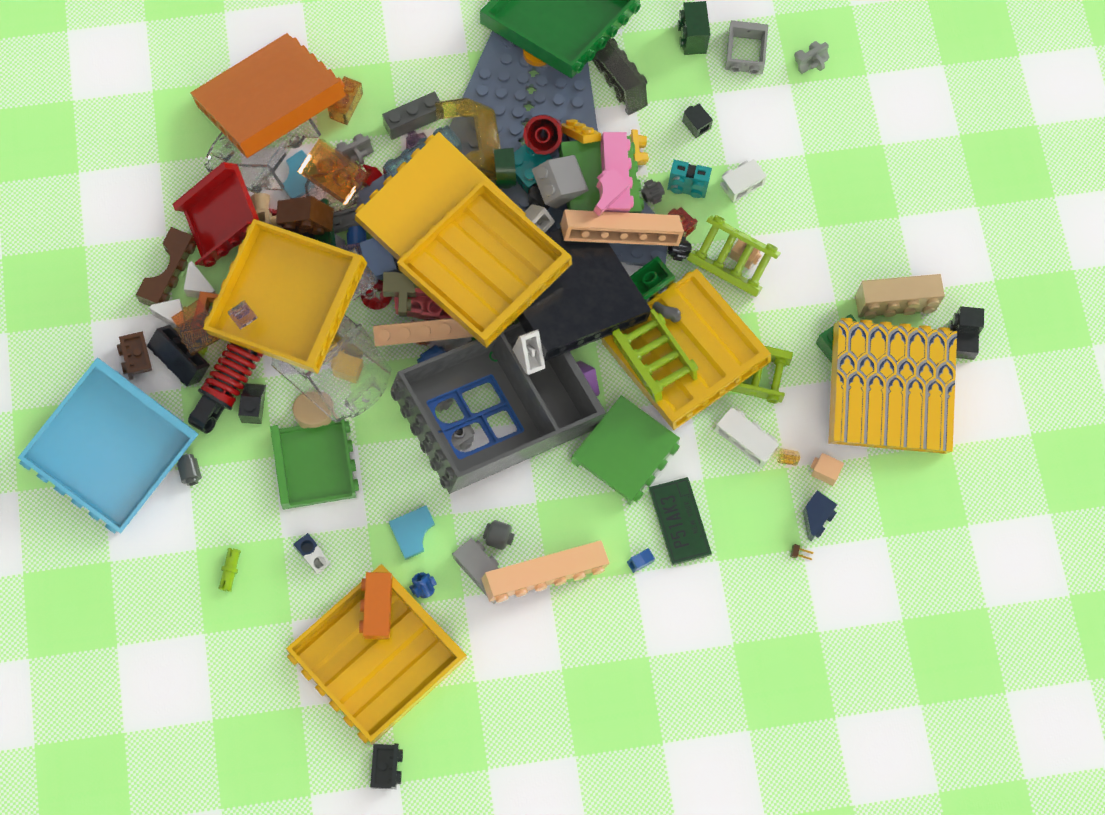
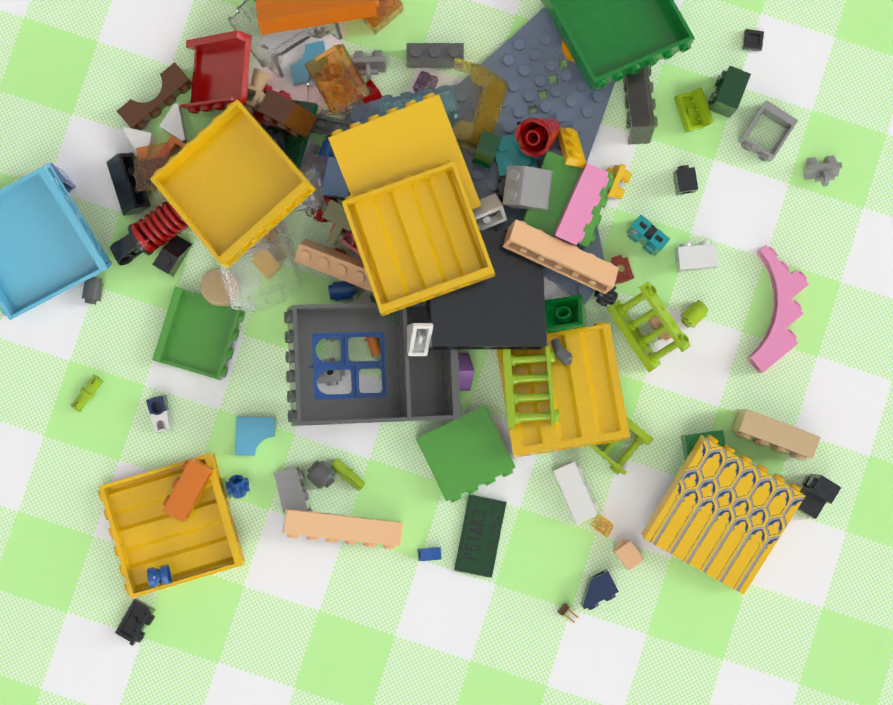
camera: 30 degrees right, 15 degrees up
(135, 354) = (92, 164): reddish brown bracket -> none
(242, 314) = (185, 185): tile -> none
(389, 702) = (159, 576): none -> blue wheel
(487, 394) = (373, 345): none -> orange pin
(525, 524) = (348, 474): none -> lime axle
(611, 187) = (566, 220): bright pink arch -> none
(652, 191) = (610, 230): dark grey gear -> none
(672, 58) = (693, 110): none -> lime bracket
(768, 229) = (694, 314): none -> lime brick
(848, 188) = (785, 311): none -> bright pink arch

